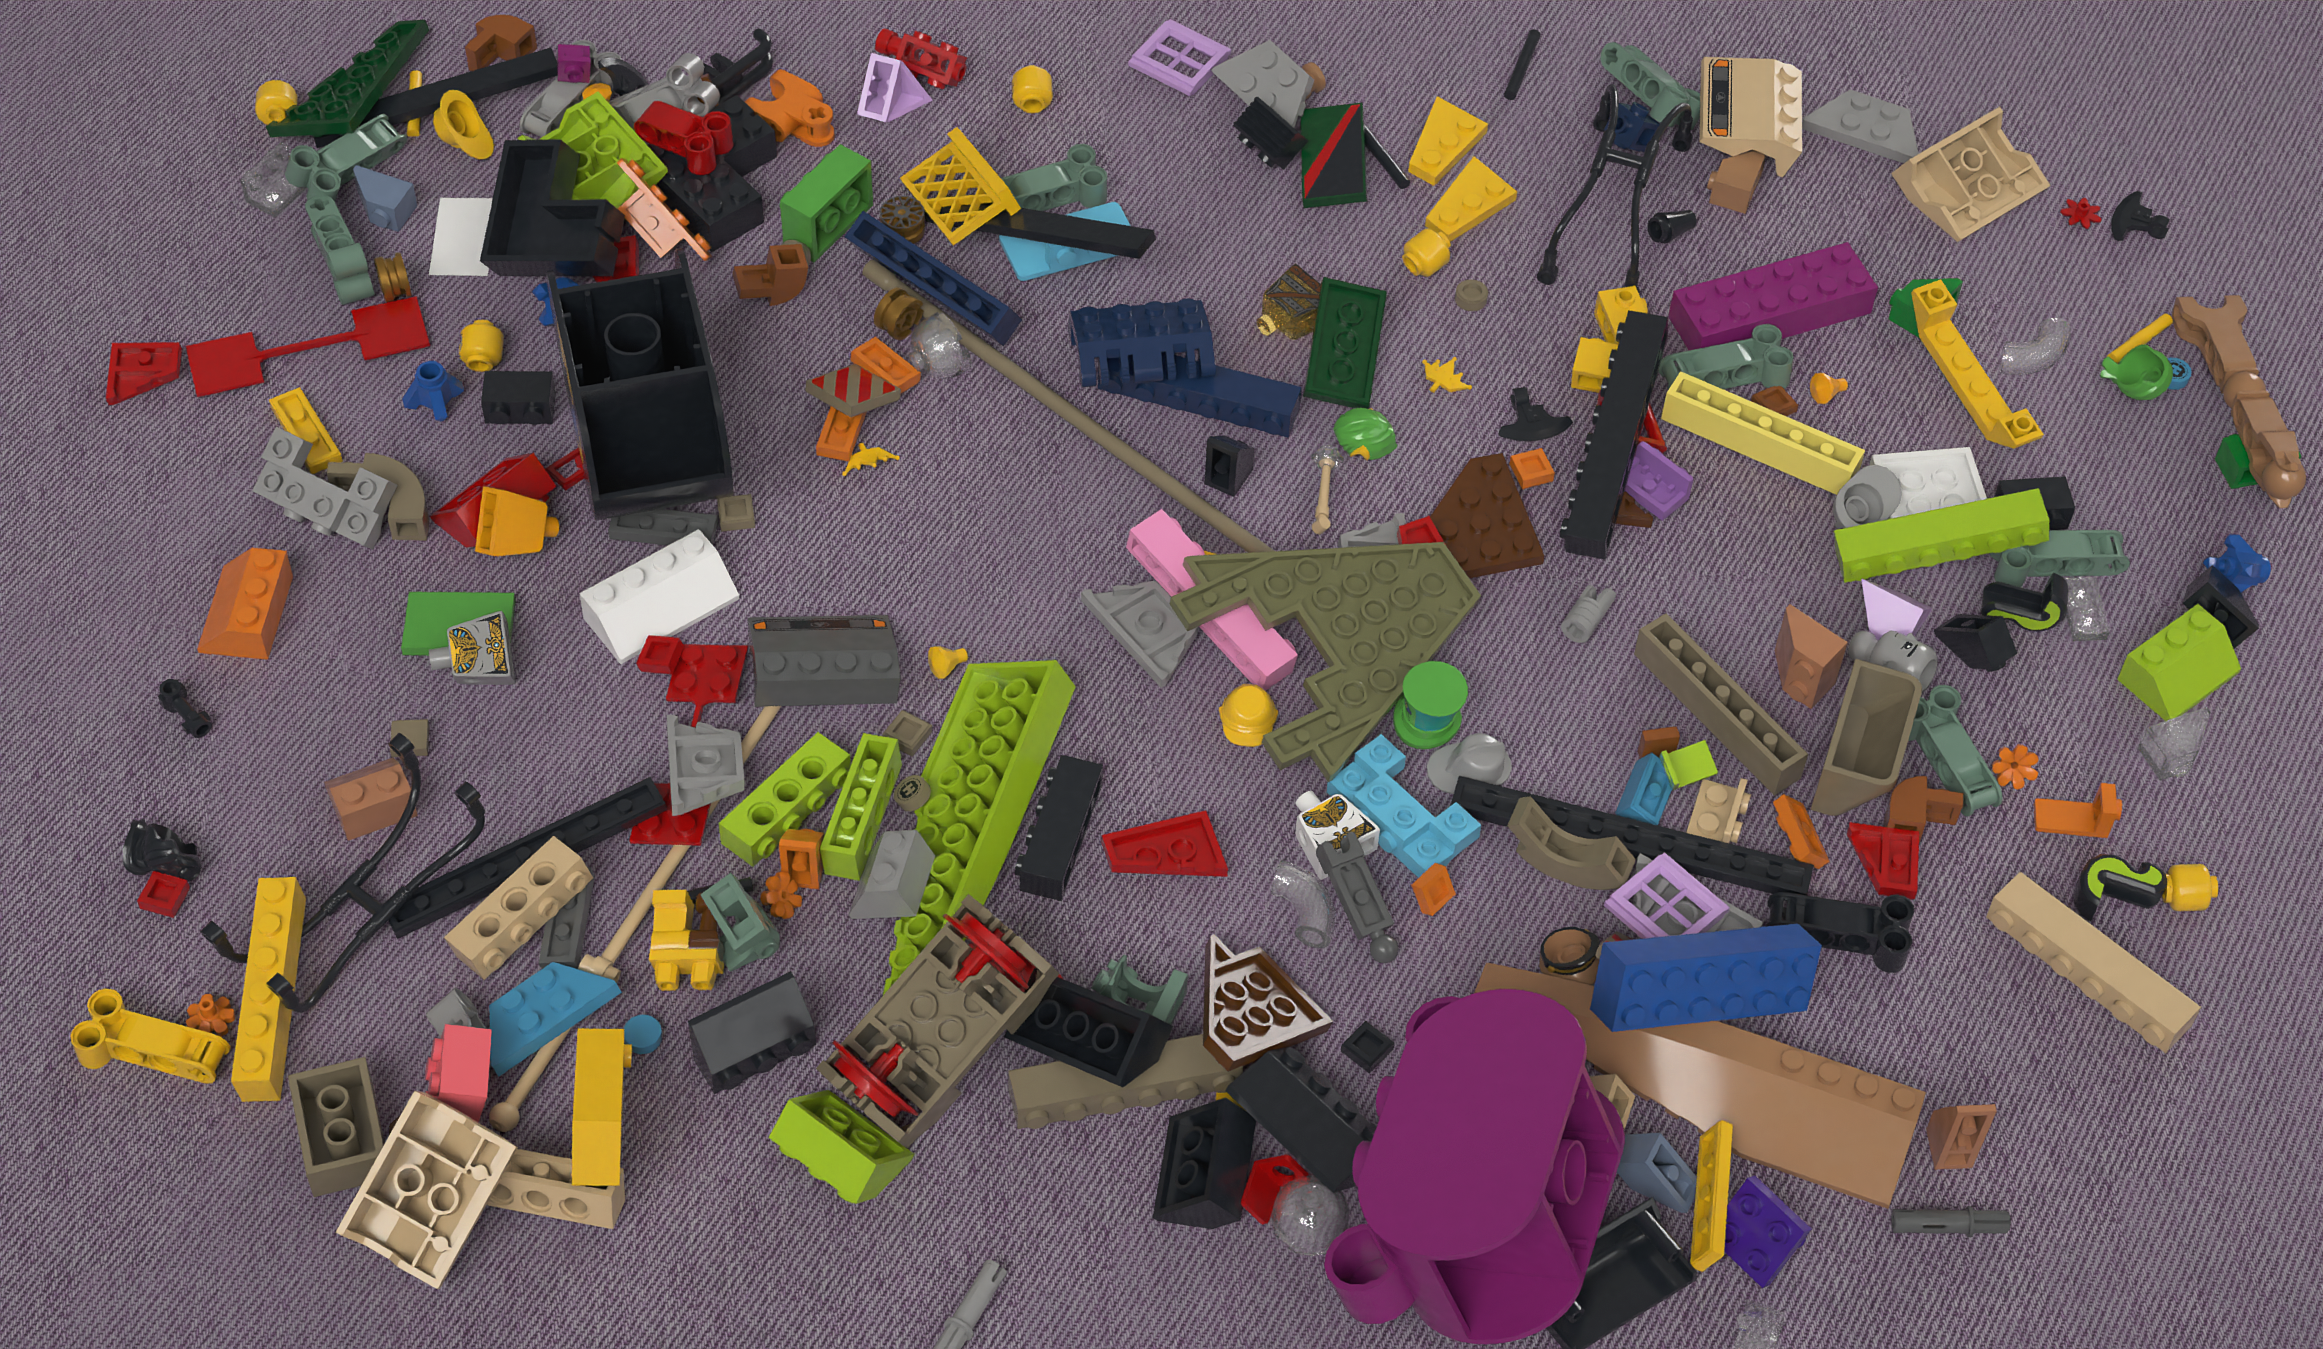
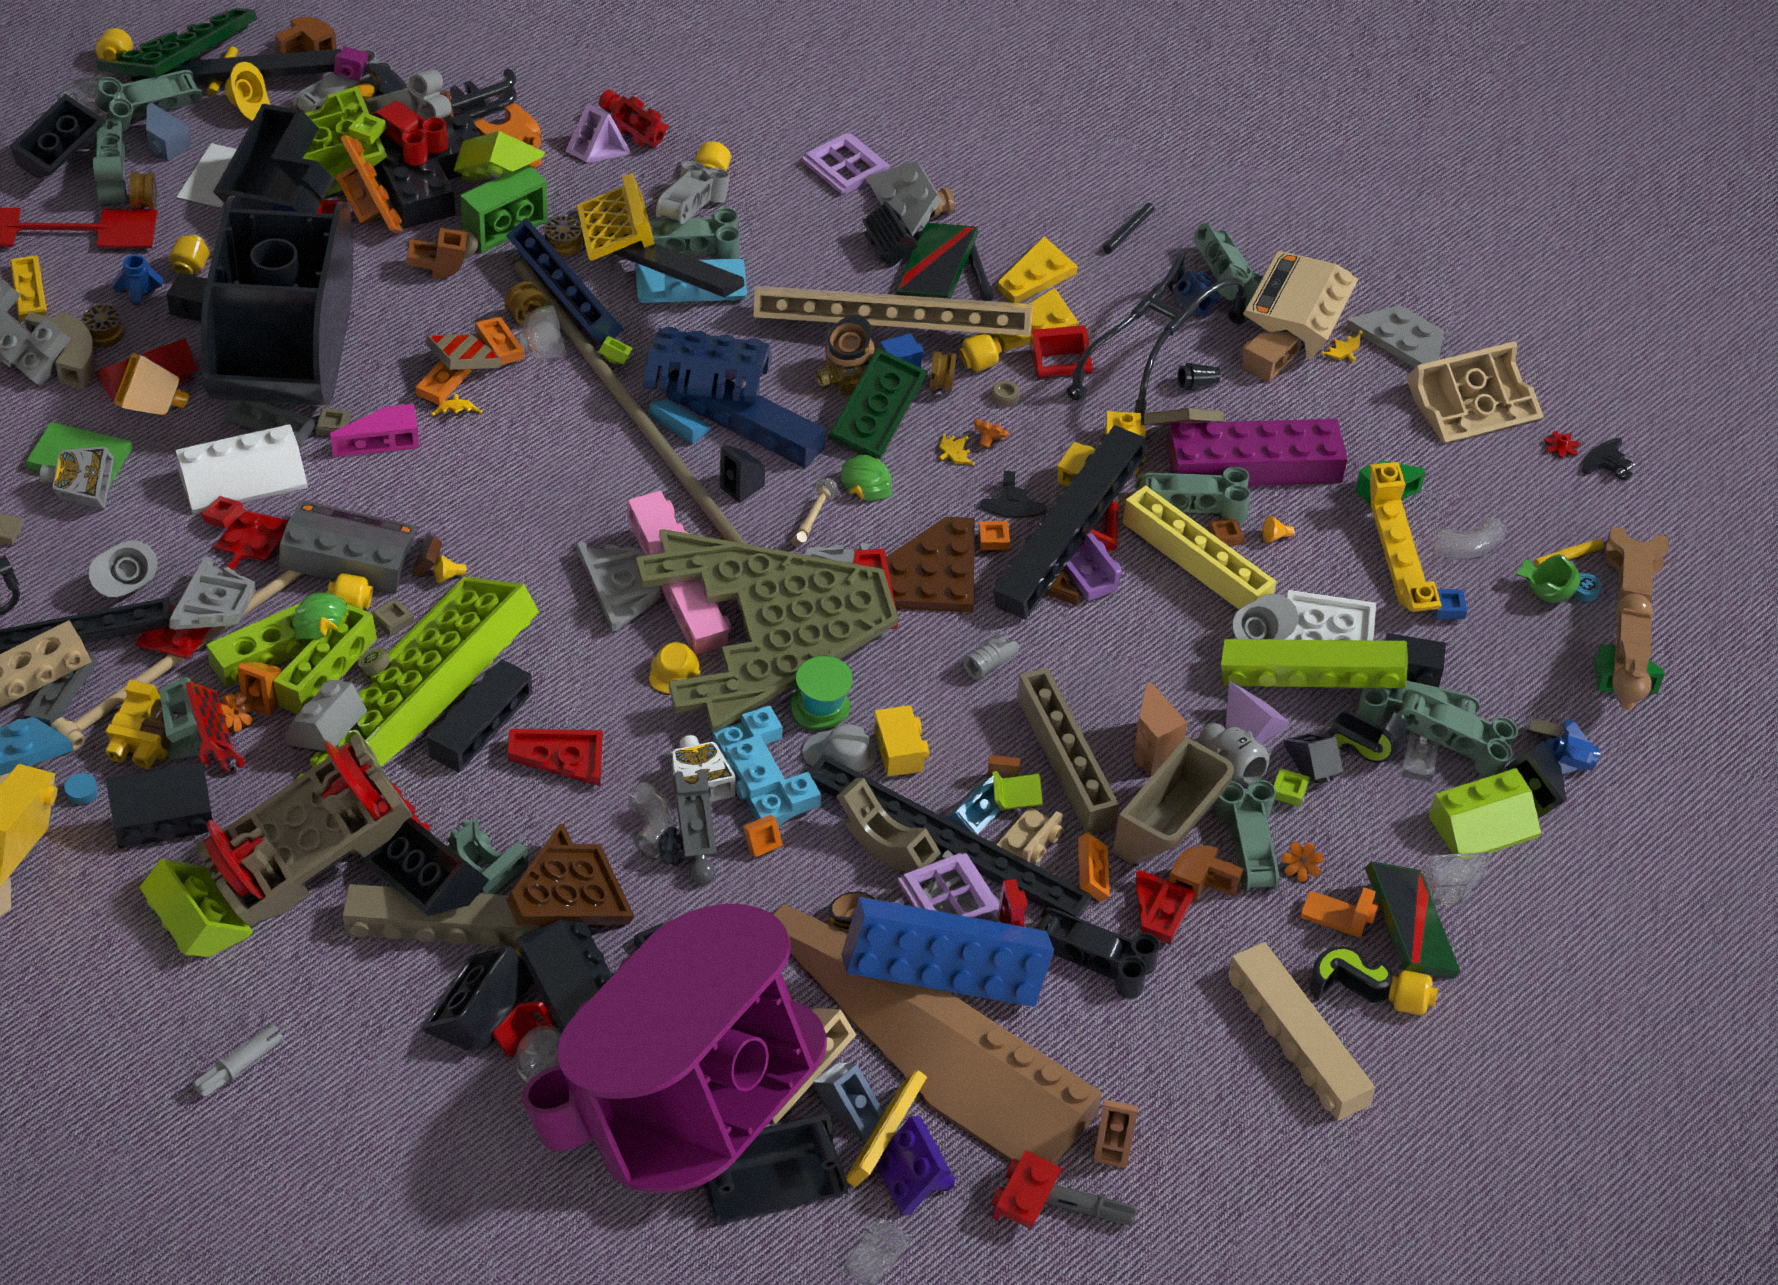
camera: 15 degrees right, 5 degrees down
(265, 236) = (55, 137): none -> black slope
(418, 454) = (103, 324): none -> pearl gold wheel
(580, 754) = (123, 569): none -> light grey piece
(635, 142) = (367, 128): none -> lime plate
(776, 925) = (212, 727): none -> red flag
(797, 145) = (493, 156): none -> lime slope
(801, 509) = (381, 431): none -> dark pink slope
(839, 757) = (318, 614): none -> bright green hair
(850, 717) = (353, 590): none -> yellow head
(917, 647) = (427, 555): none -> reddish brown tile
(1022, 347) = (615, 351): none -> lime plate
(1030, 128) = (693, 191): none -> light grey piece
(1127, 415) = (678, 420): none -> dark azure slope
(1289, 277) = (850, 342): none -> medium nougat piece
(1317, 226) = (894, 310): none -> tan brick
(1339, 928) = (669, 845): none -> black plant
(1344, 268) = (904, 348): none -> blue brick
(1399, 285) = (939, 369): none -> pearl gold wheel
(1475, 346) = (989, 432): none -> orange plant
(1507, 220) = (1058, 342): none -> red tile
(1535, 738) = (900, 740): none -> yellow brick
(1685, 280) = (1186, 415): none -> dark tan tile
(1750, 906) = (1012, 904): none -> red wing
(1812, 154) = (1344, 348): none -> yellow piece
(1887, 1225) = (1027, 1189): none -> red bracket
(1968, 682) = (1290, 787): none -> lime plate
(2051, 427) = (1452, 603): none -> blue plate
(2121, 574) = (1460, 730): none -> sand green piece
(2156, 804) = (1412, 920): none -> tile
(2200, 548) = (1544, 728): none -> dark tan tile

